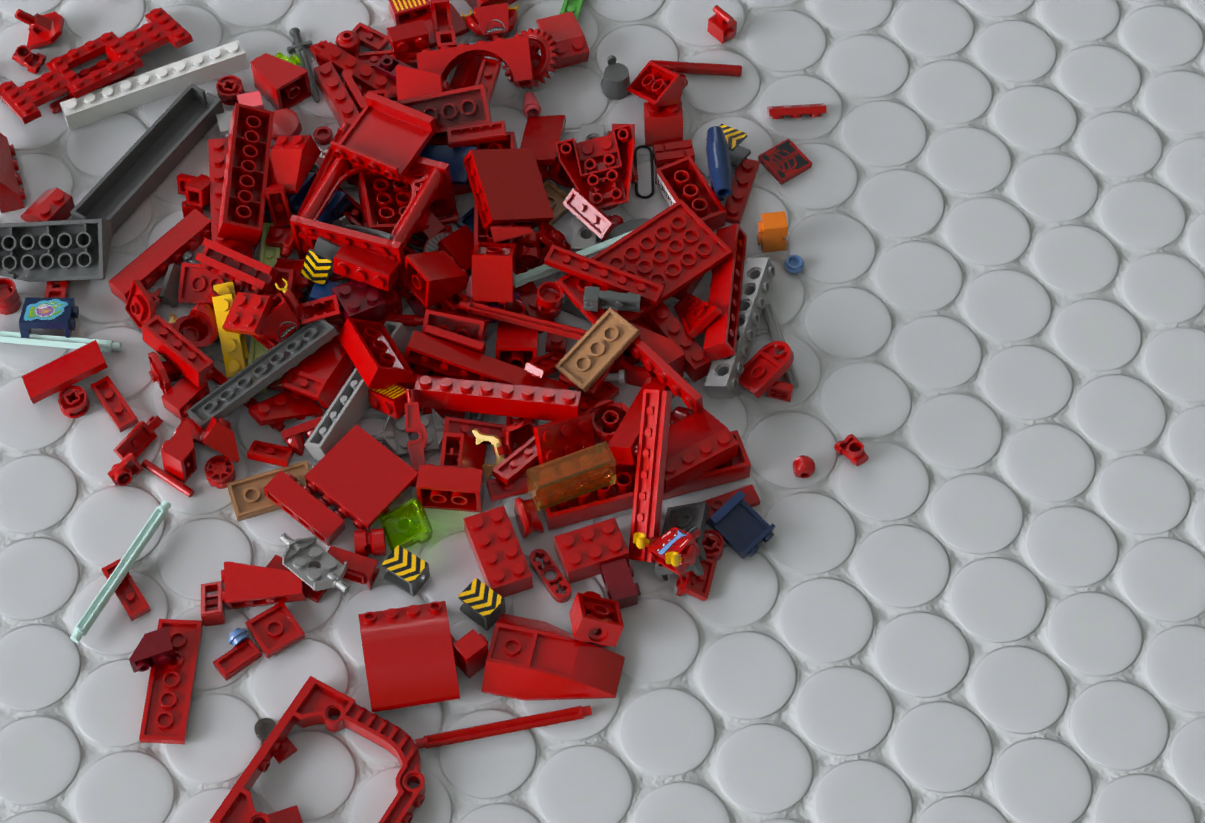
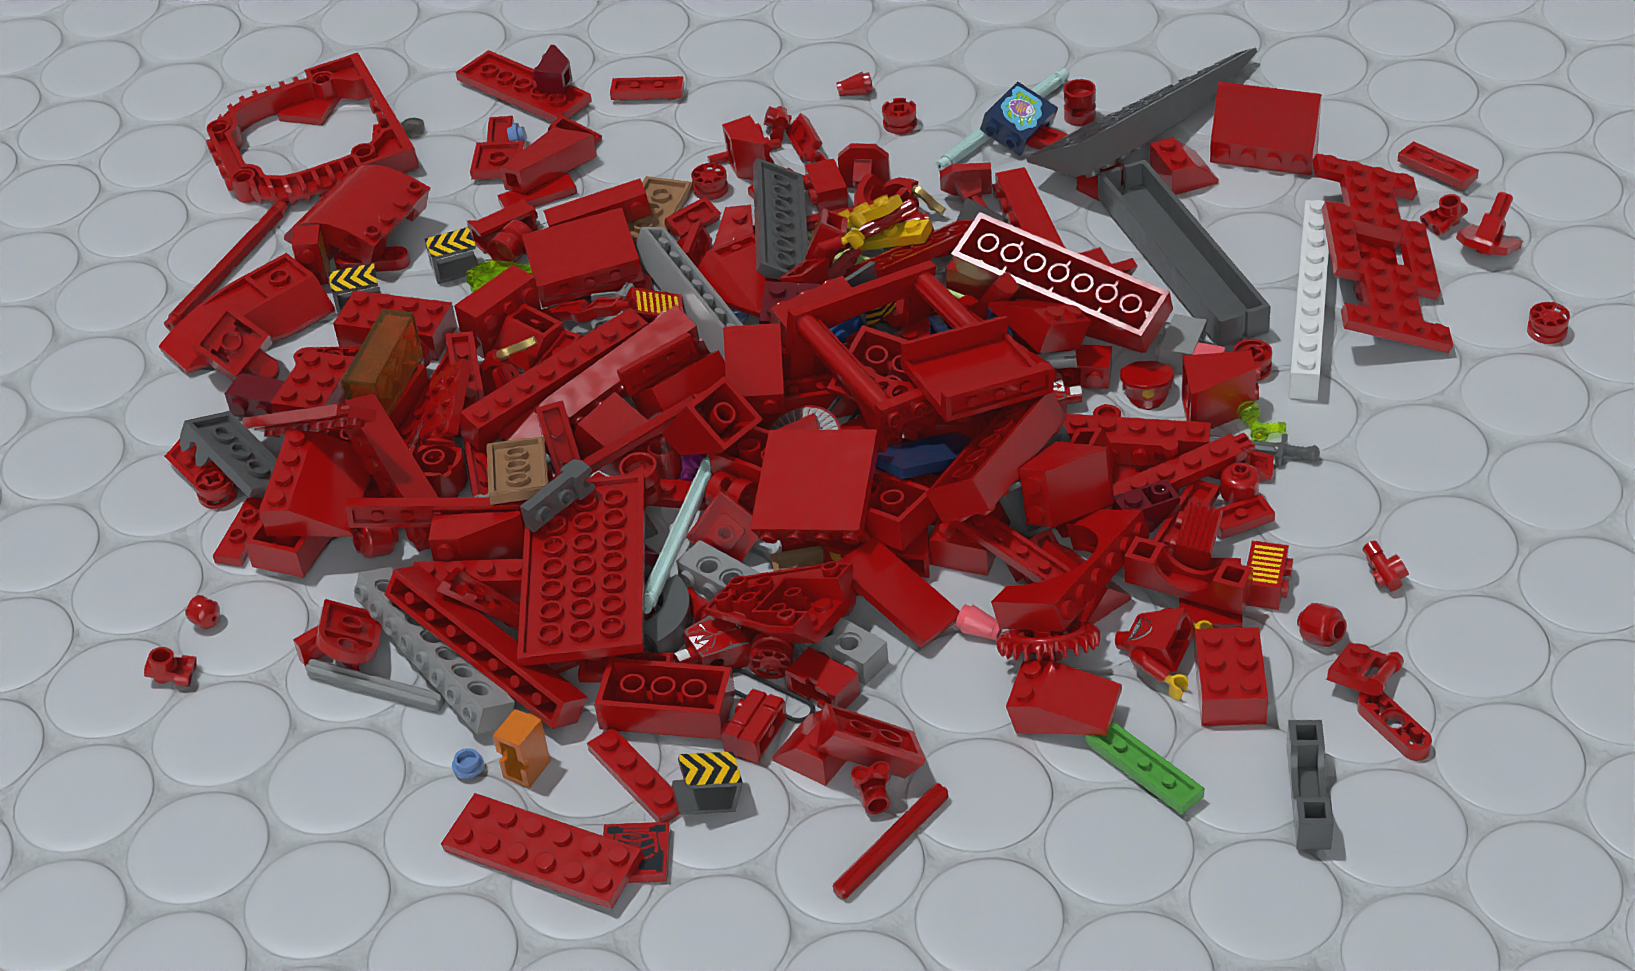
camera: 130 degrees right, 15 degrees down
(46, 449) = (855, 85): none -> red cone
(64, 371) = (937, 113): red tile -> none
(114, 404) = (887, 138): red plate -> none
(120, 571) = (663, 82): light aqua piece -> none
(178, 350) = (847, 167): red brick -> none
(221, 438) = (730, 177): red slope -> none
(238, 266) = (925, 233): red brick -> none
(248, 313) = (844, 205): red plate -> none
(306, 553) = (497, 183): light grey plate -> none
(343, 222) = (855, 323): dark grey sword -> none
(374, 353) = (704, 290): red slope -> none
(477, 134) = (912, 489): red plate -> none
(506, 232) = (754, 435): red slope -> none
(588, 213) = (724, 567): plate -> none
(603, 274) = (599, 506): red plate -> none
(615, 80) = (940, 728): dark grey hat -> none
(639, 205) = (714, 644): none -> red torso
(674, 549) = (216, 413): red torso -> none
(719, 162) = (665, 726): dark blue plate -> none
(722, 25) = (936, 906): red brick -> none
(741, 526) = (199, 519): dark blue panel -> none
(796, 111) = (702, 910): red plate -> none
(818, 195) = (543, 850): none -> red plate

